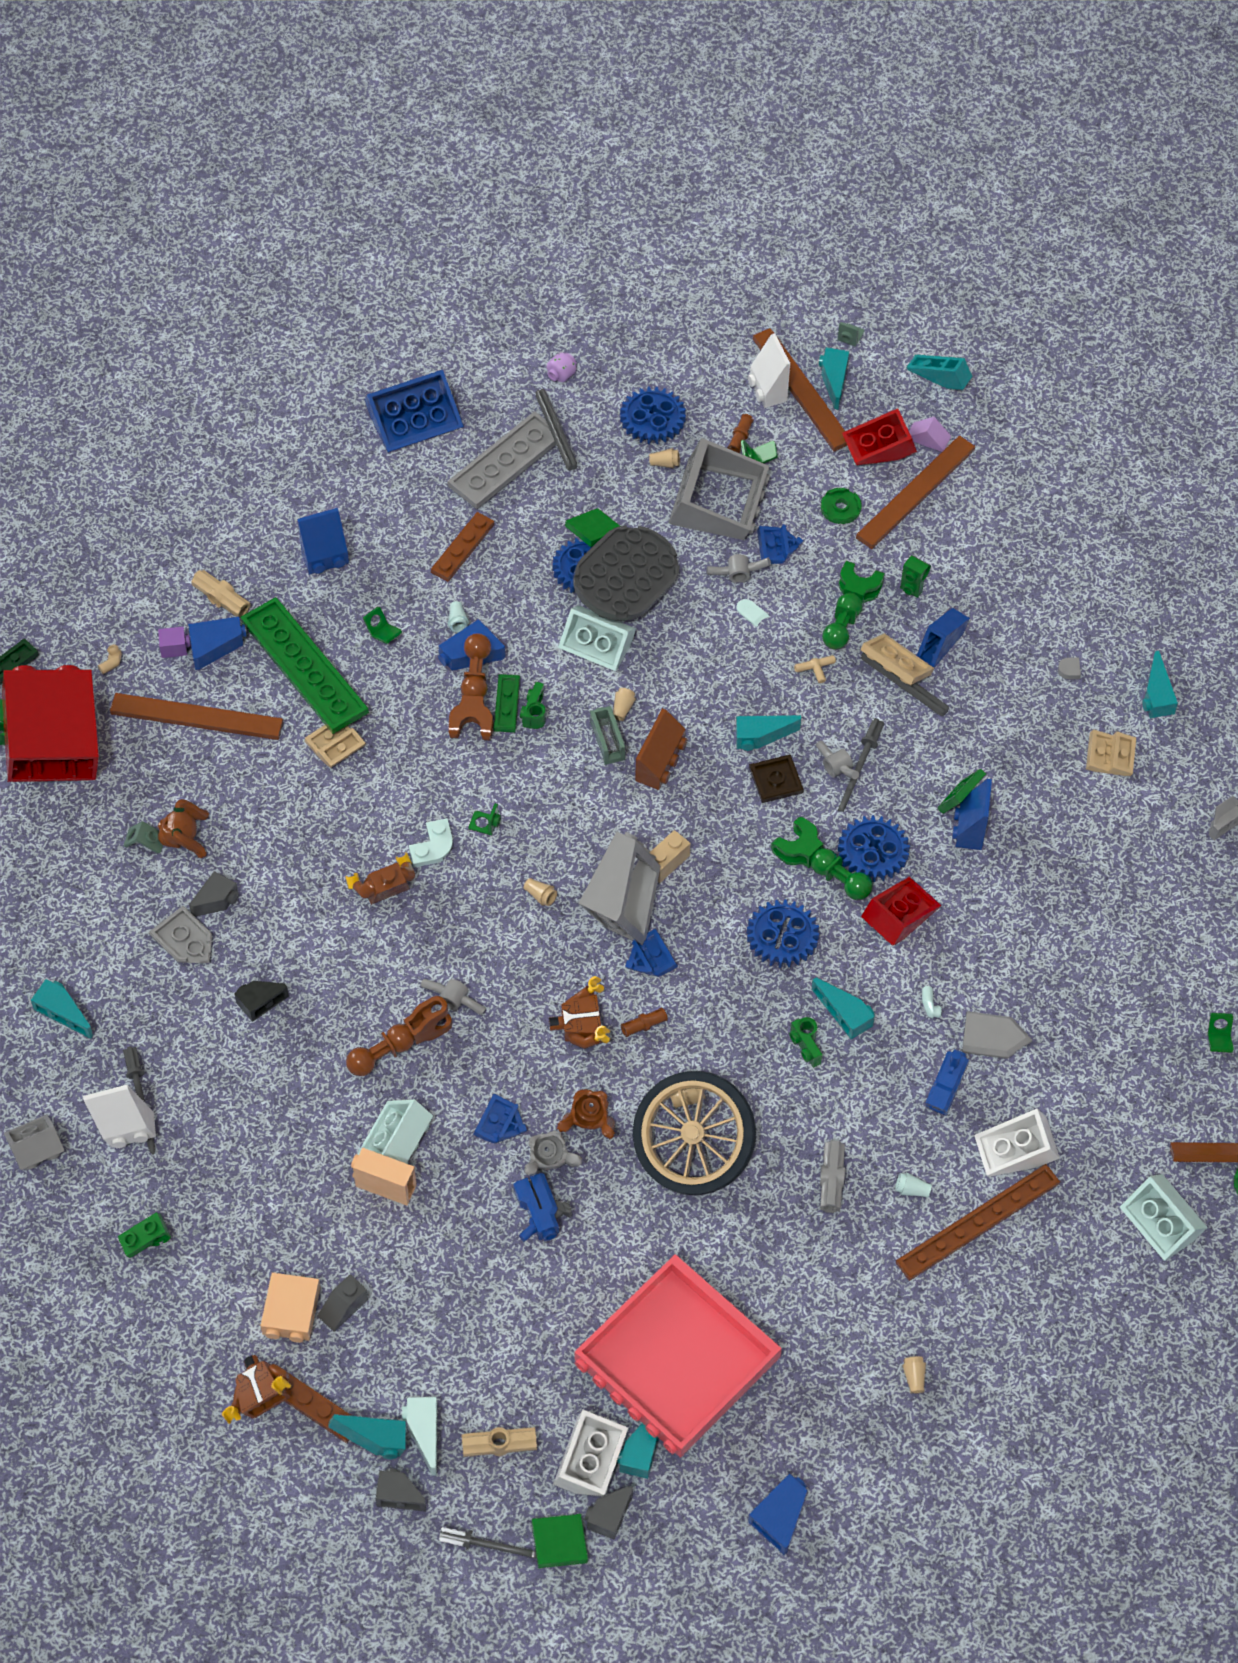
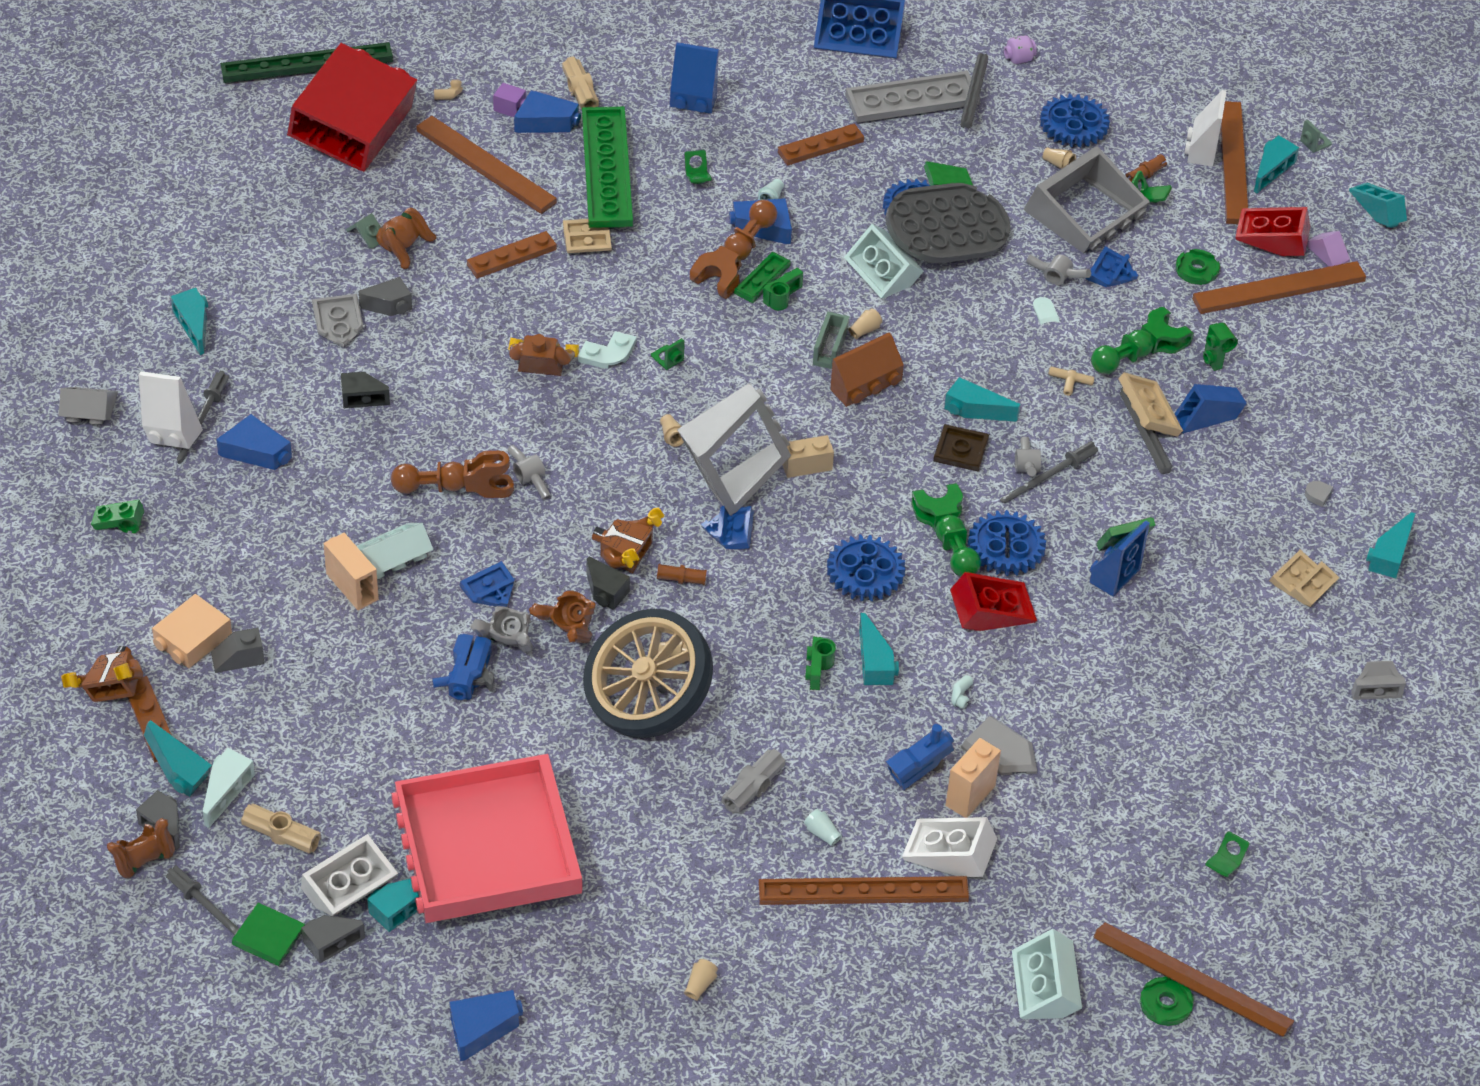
camera: 30 degrees right, 10 degrees down
(209, 1100) = (254, 444): none -> blue slope
(284, 794) = (511, 254): none -> dark orange plate
(405, 1520) = (145, 848): none -> dark orange hair
(591, 1066) = (606, 583): none -> pearl dark grey slope
(1000, 1078) = (973, 777): none -> light nougat brick

